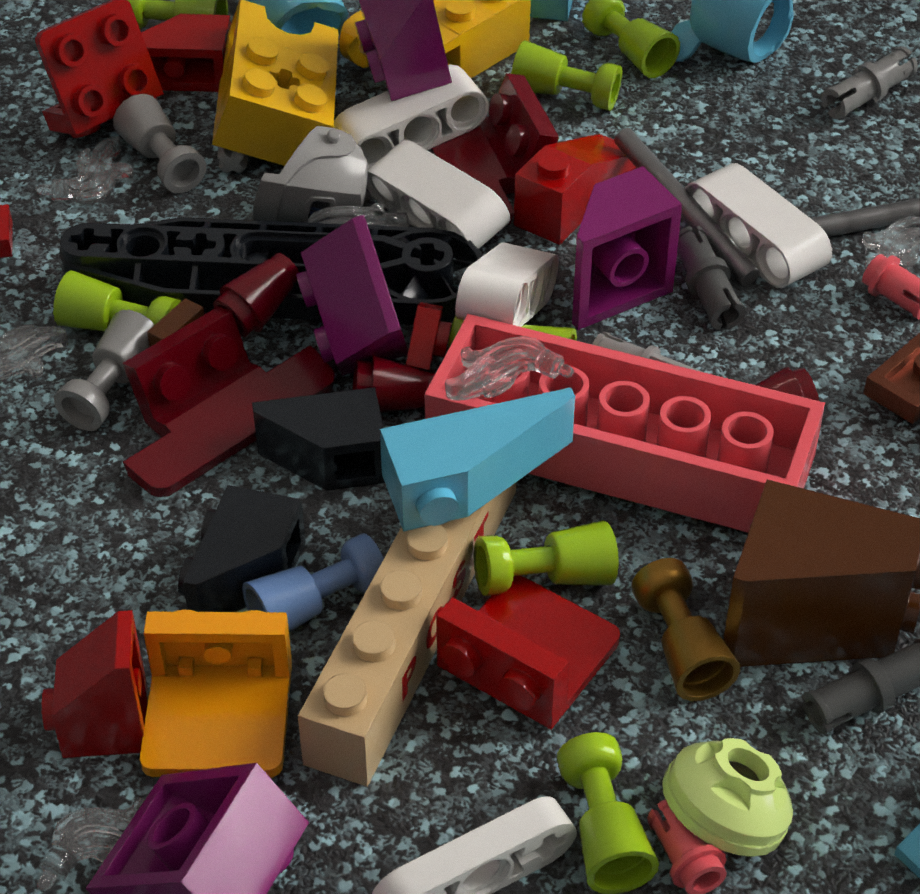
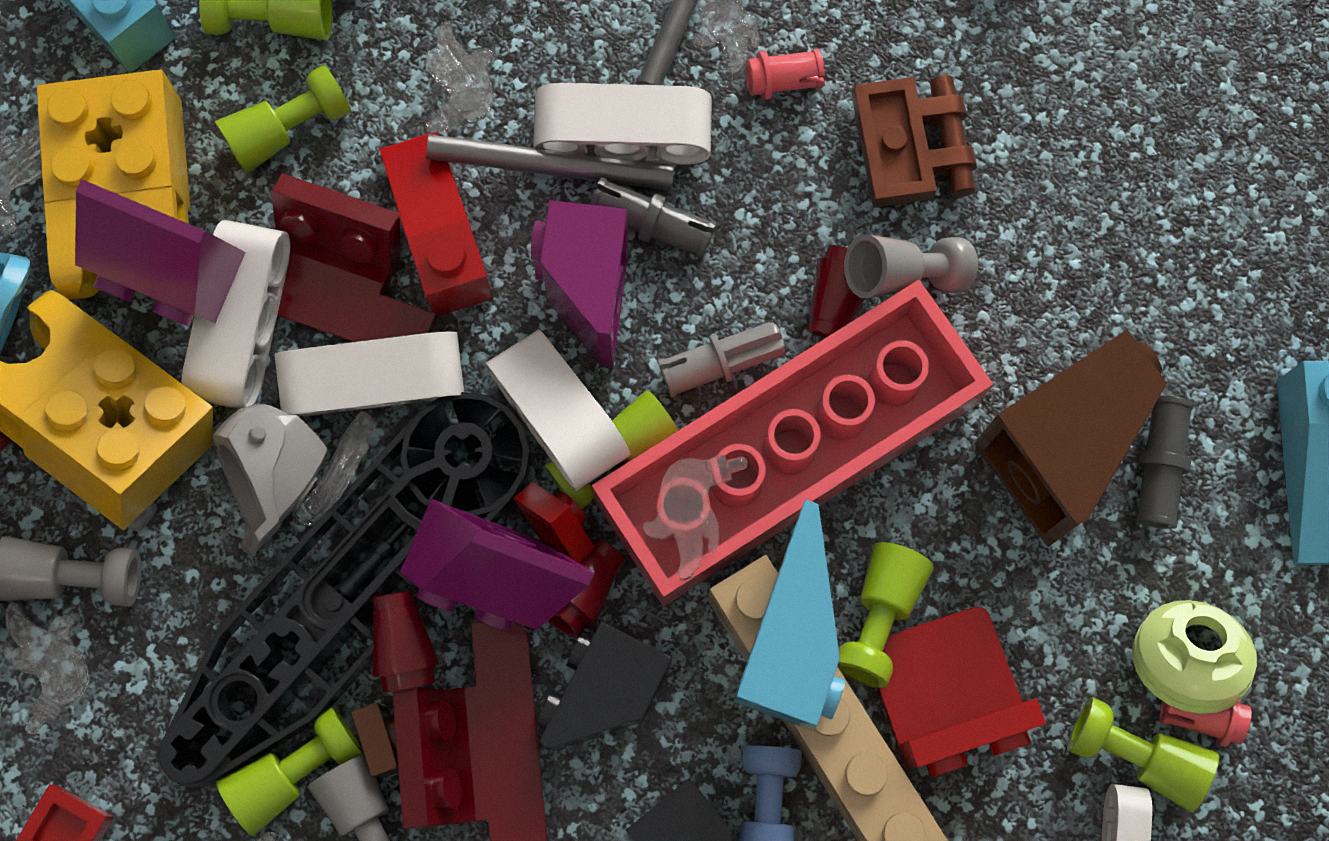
camera: 55 degrees left, 30 degrees up
(693, 648) = (1042, 568): pearl gold piece -> none
(694, 143) = (463, 77): none -> clear piece
(819, 380) = (888, 265): none -> light grey piece

